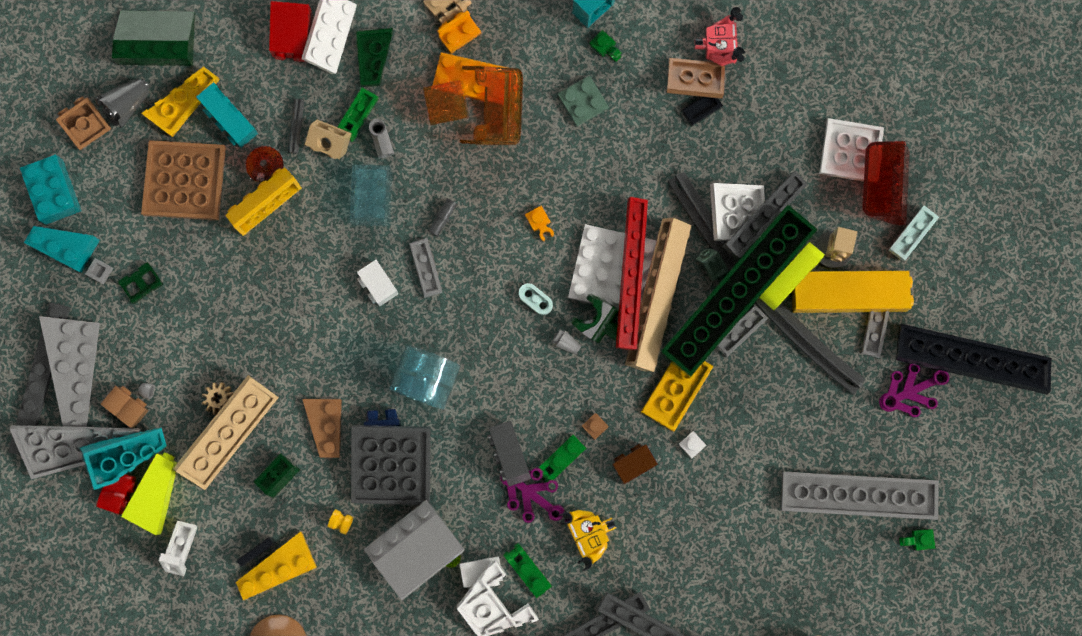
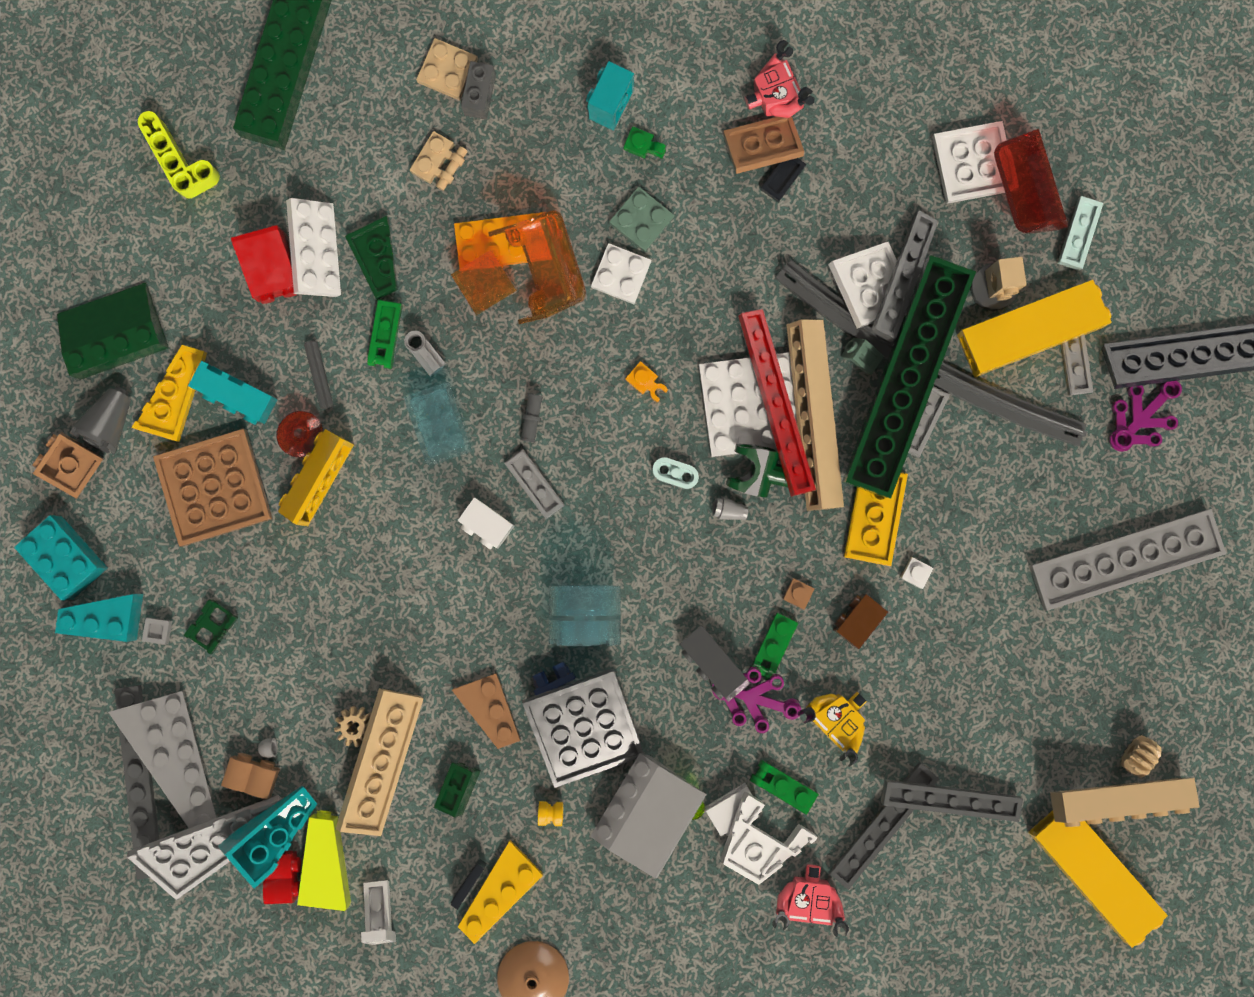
camera: 20 degrees left, 5 degrees up
(338, 139) = (374, 370): tan brick -> none
(458, 31) = (465, 191): light orange bracket -> none
(552, 135) = (621, 273): none -> white plate
(792, 276) = (964, 336): neon yellow beam -> none
(920, 540) = (1213, 584): green plate -> none

